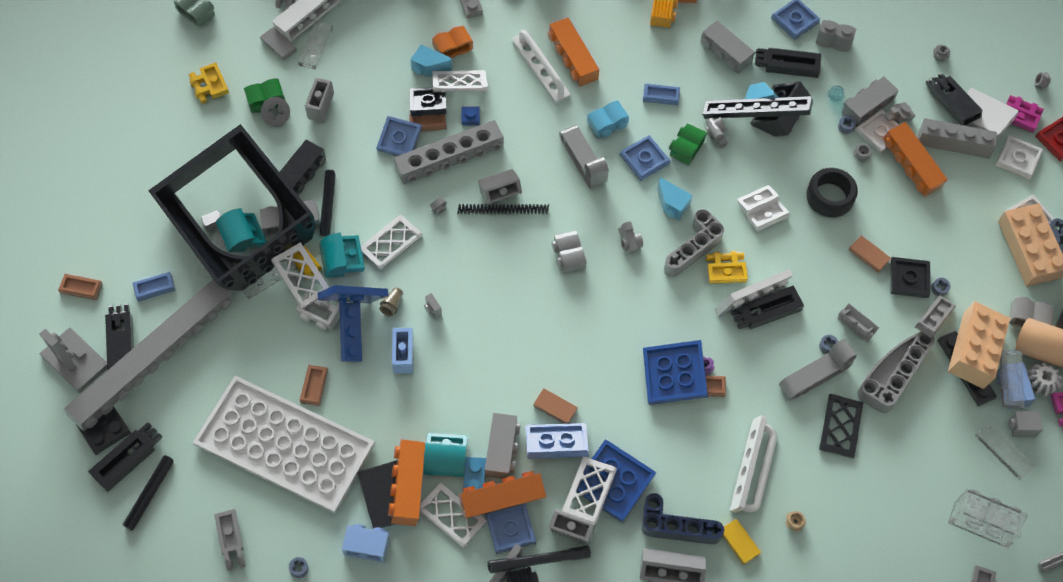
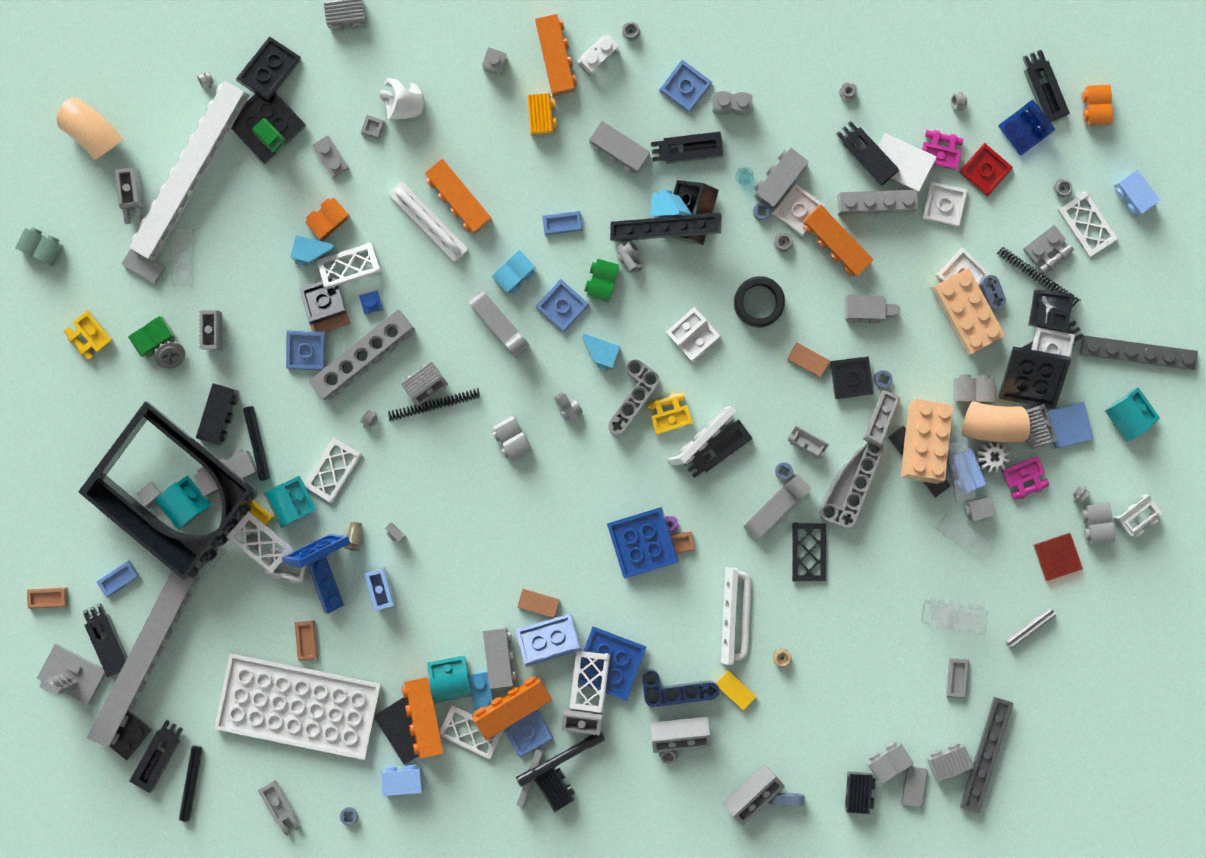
camera: 10 degrees left, 25 degrees up
(901, 112) = (814, 183): light grey plate -> none
(937, 222) = (868, 308): none -> light grey hinge

